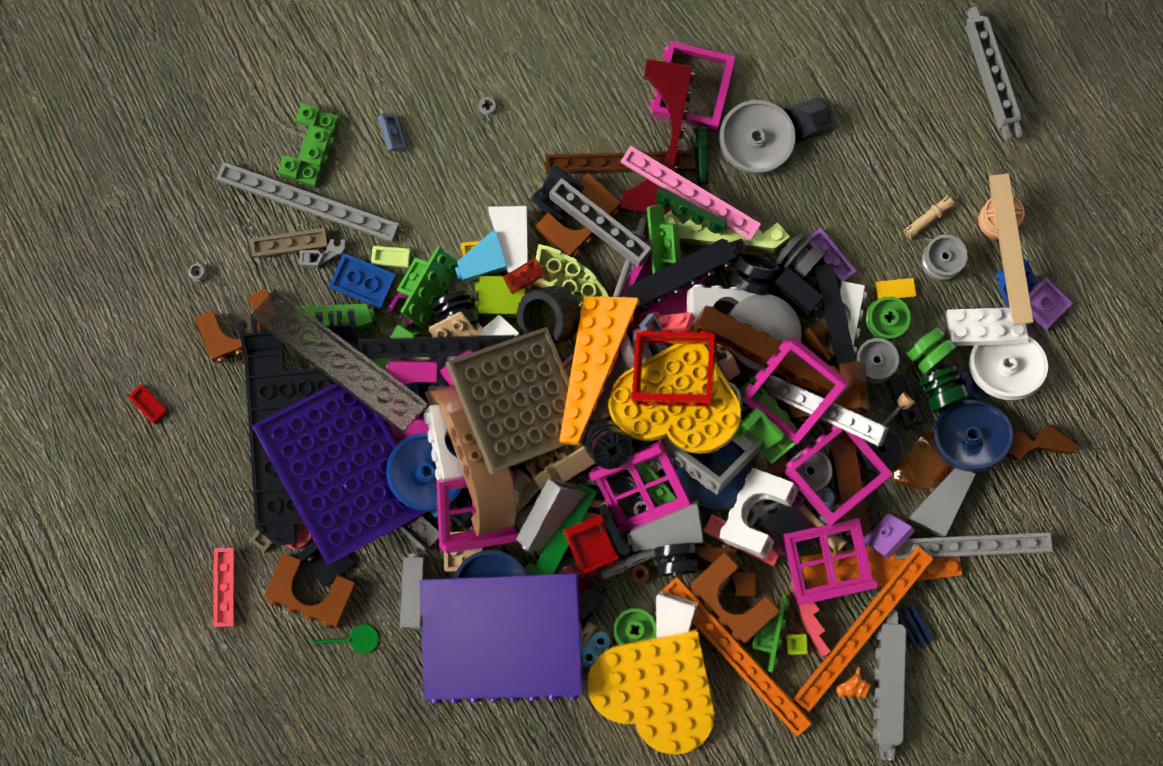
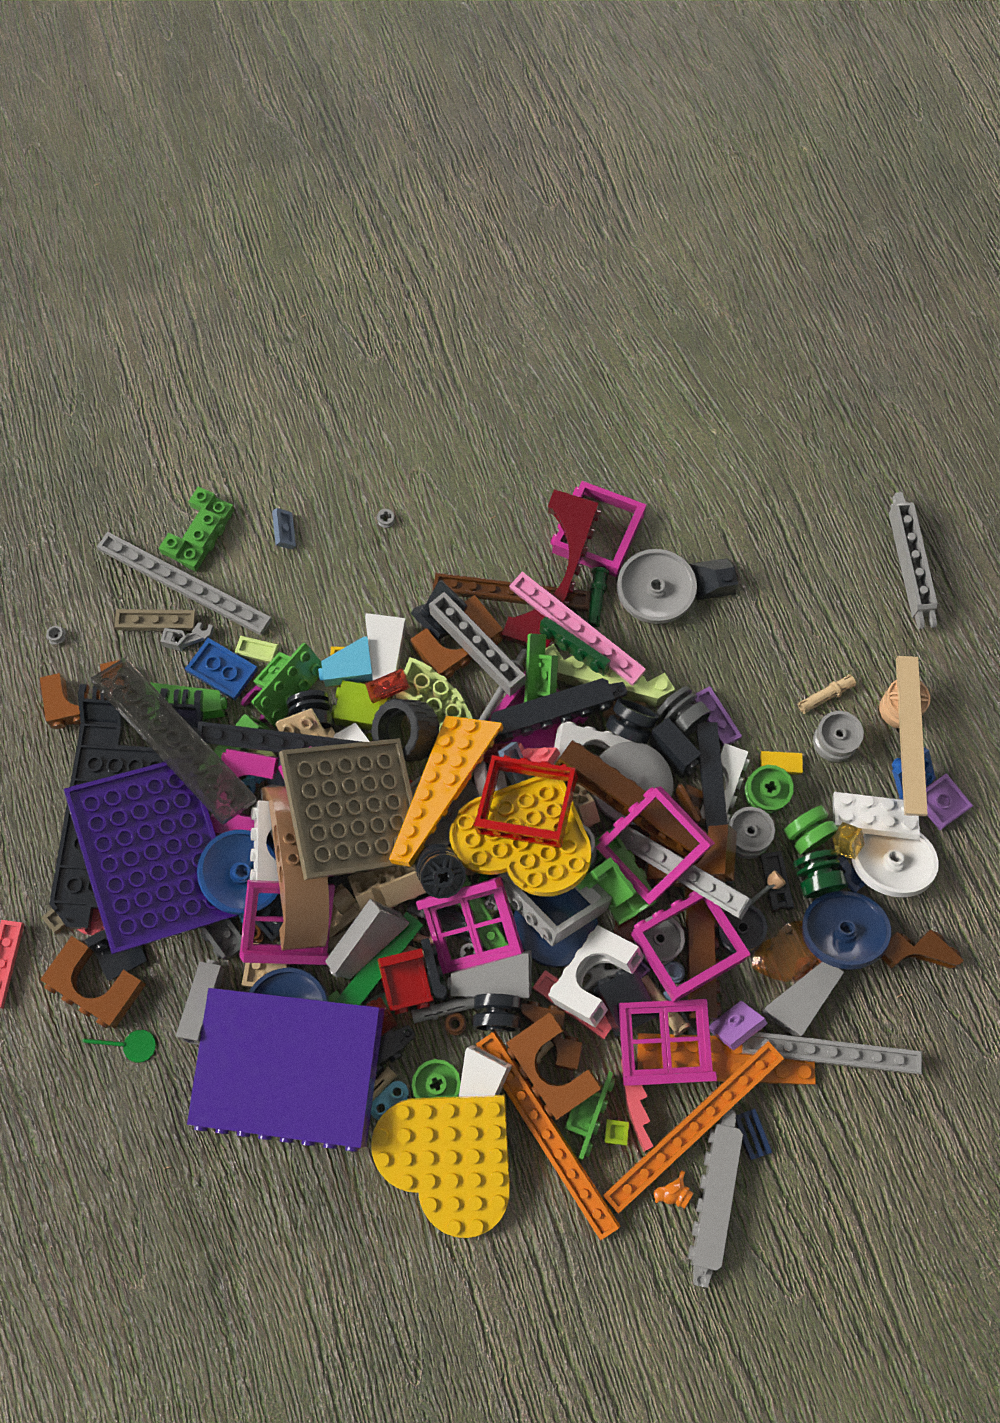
camera: 10 degrees right, 10 degrees down
(965, 355) = (848, 840): none -> clear yellow brick

